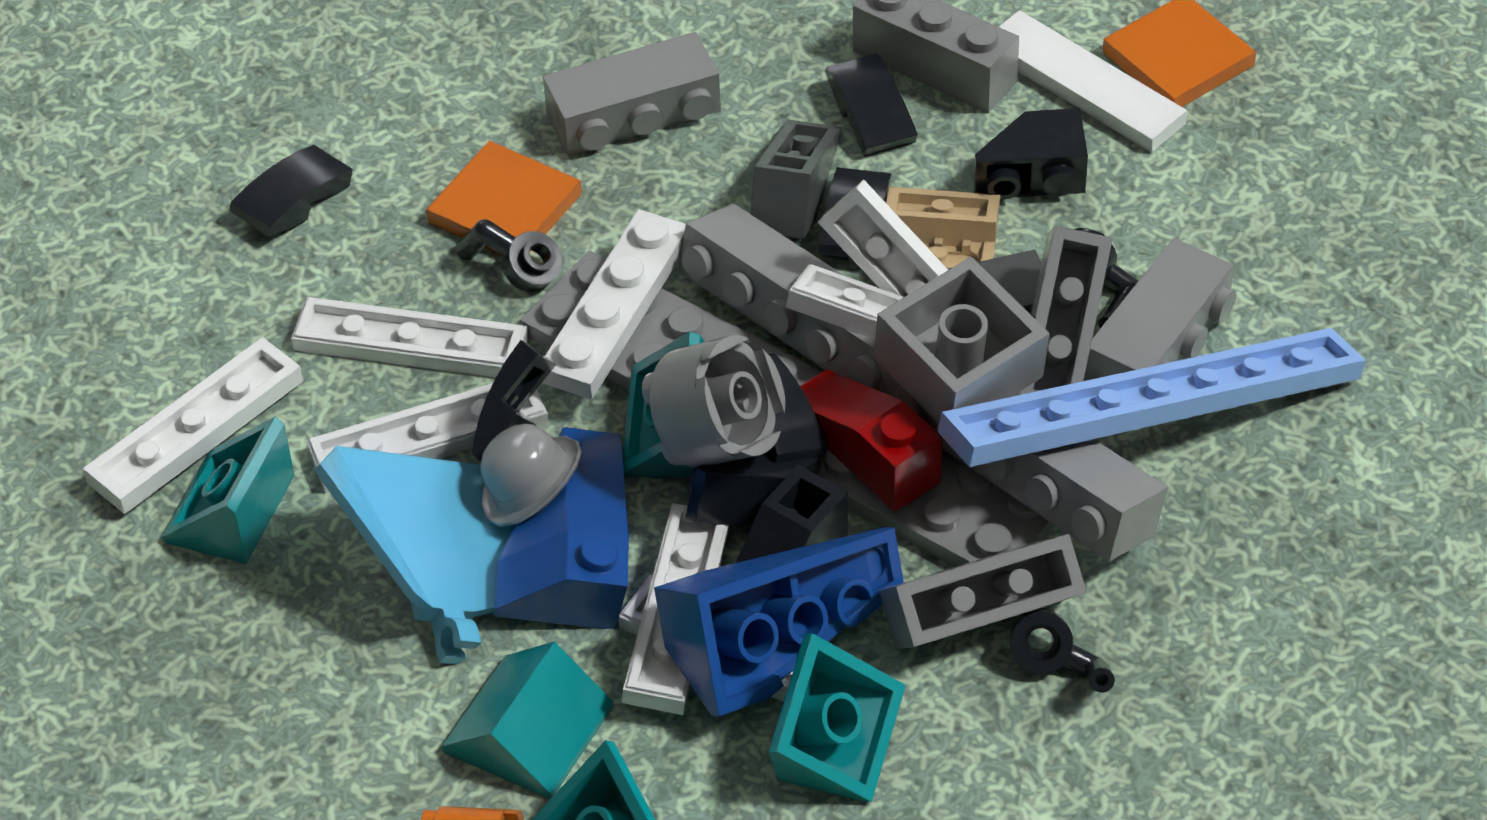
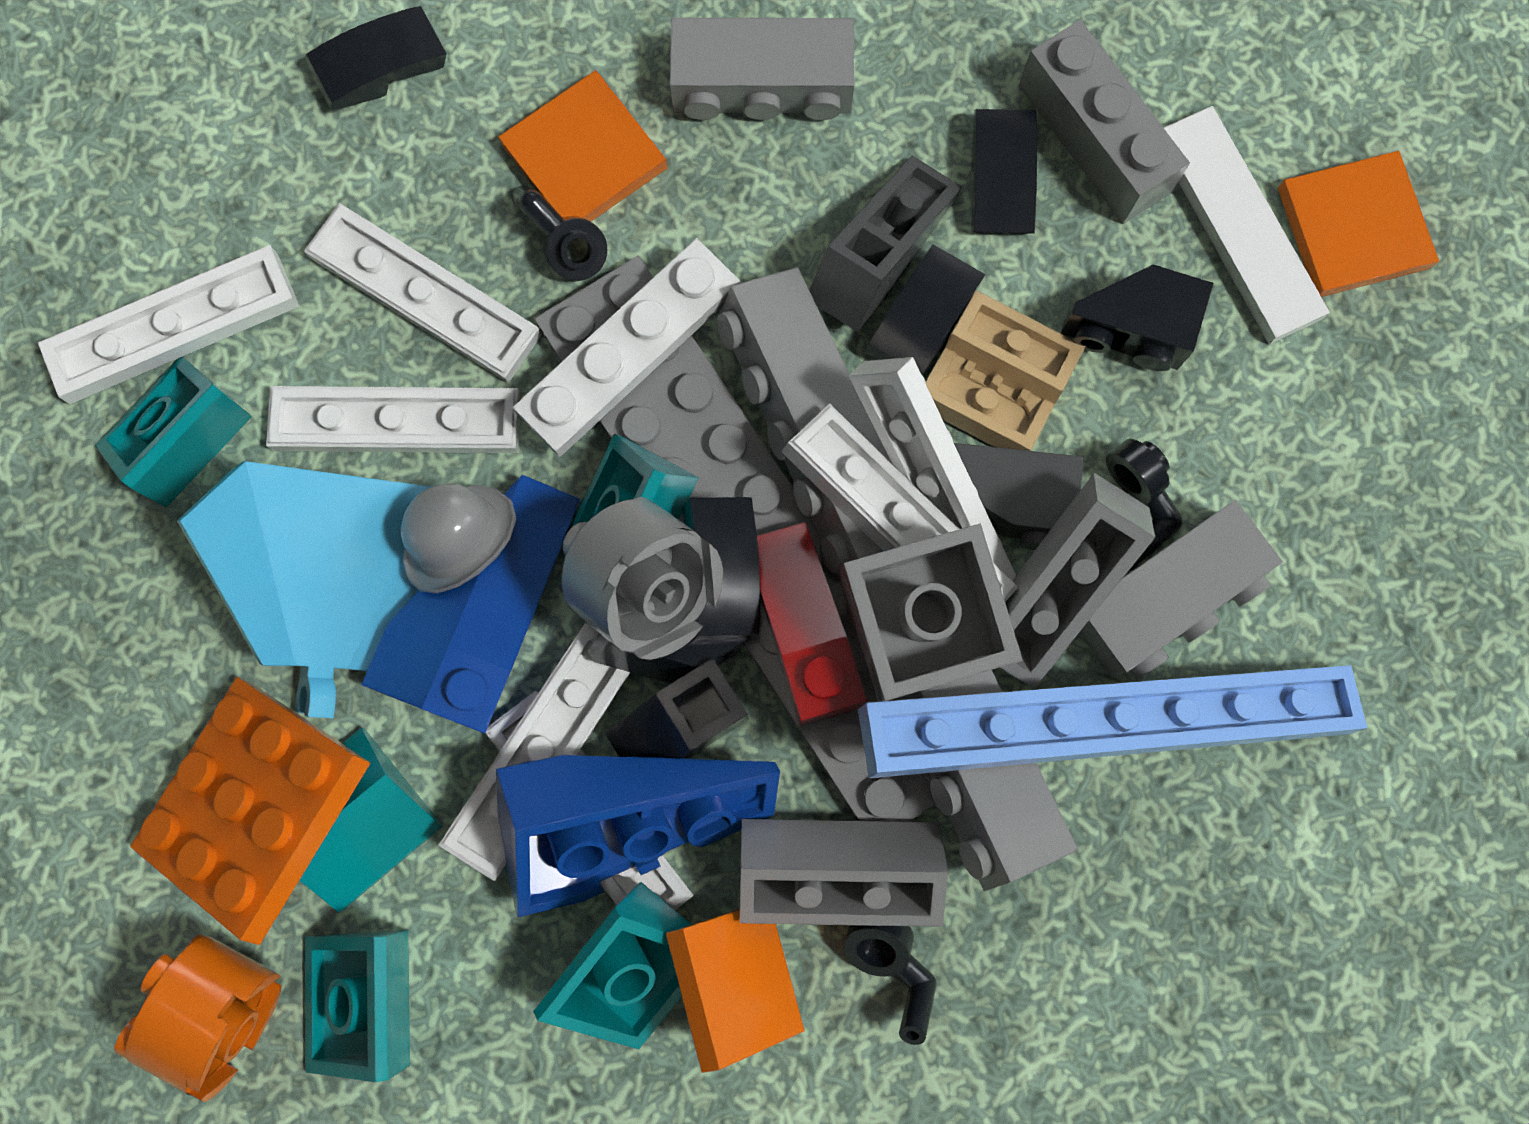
camera: 20 degrees right, 30 degrees up
(439, 716) = (249, 809): none -> orange plate
(510, 391) = (461, 449): black slope -> none
(932, 694) = (733, 988): none -> orange tile

